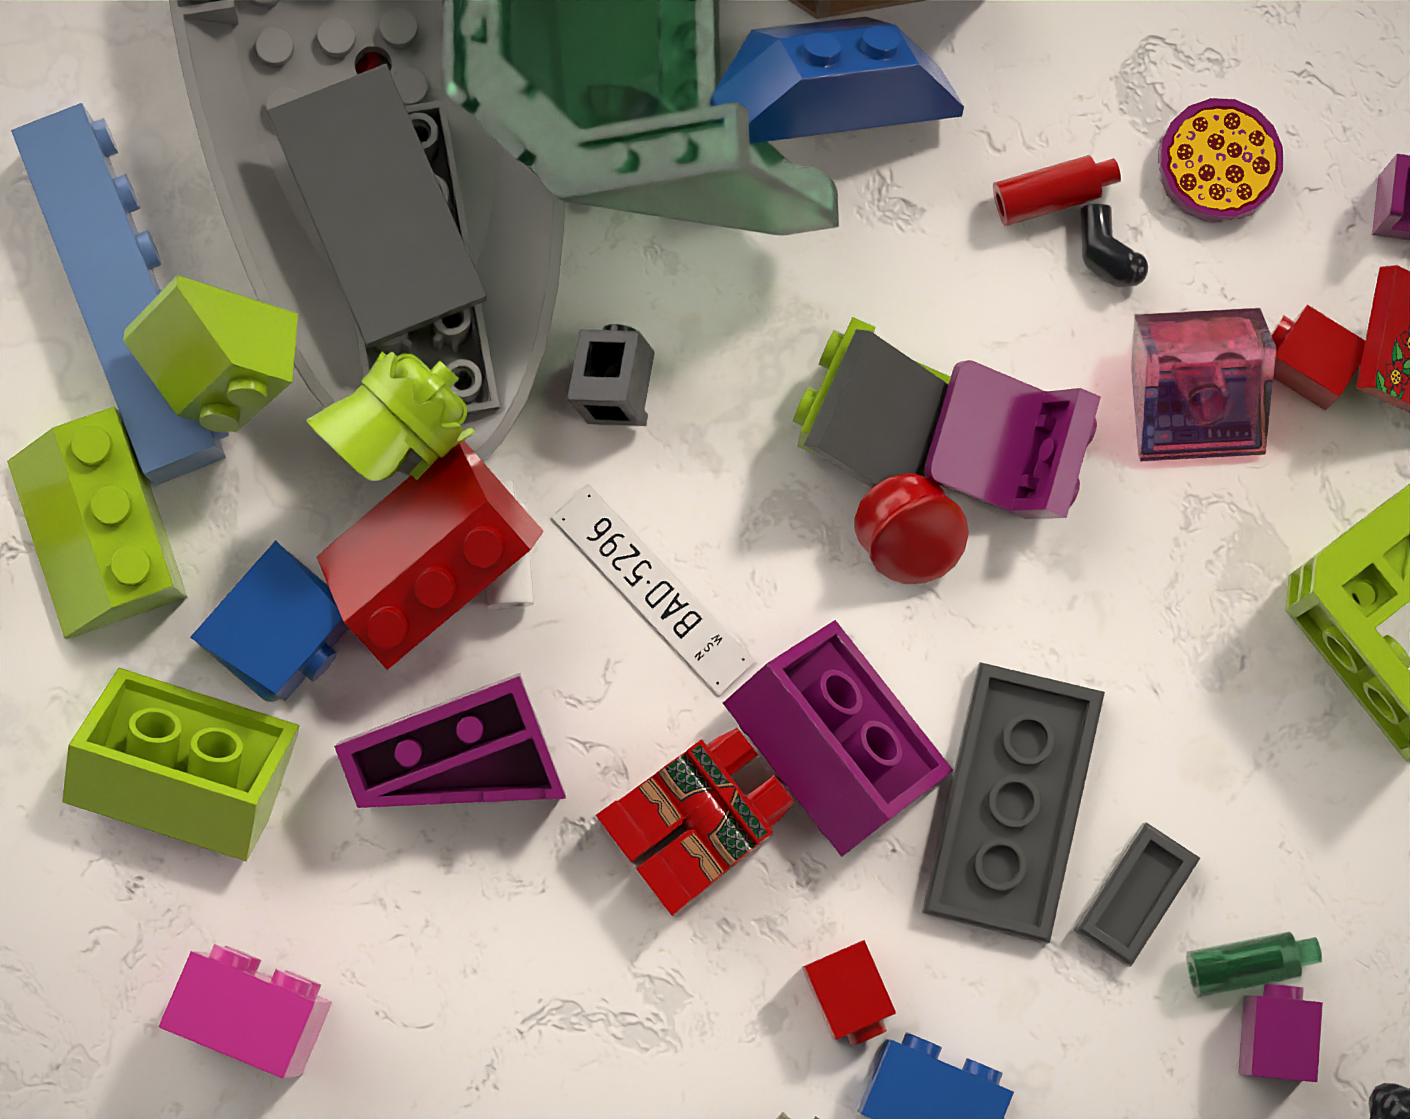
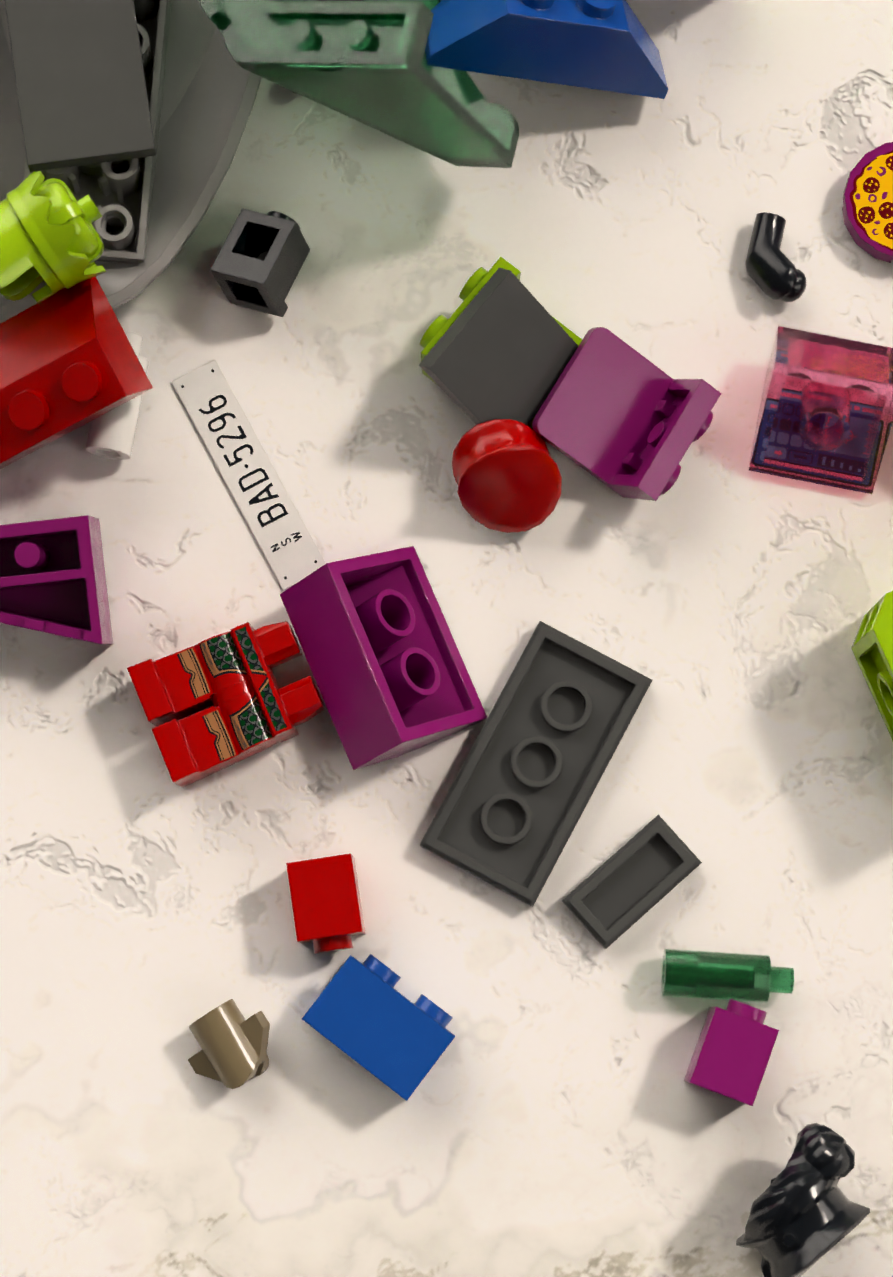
camera: 20 degrees right, 0 degrees up
(1053, 188) = (735, 189): red cylinder -> none

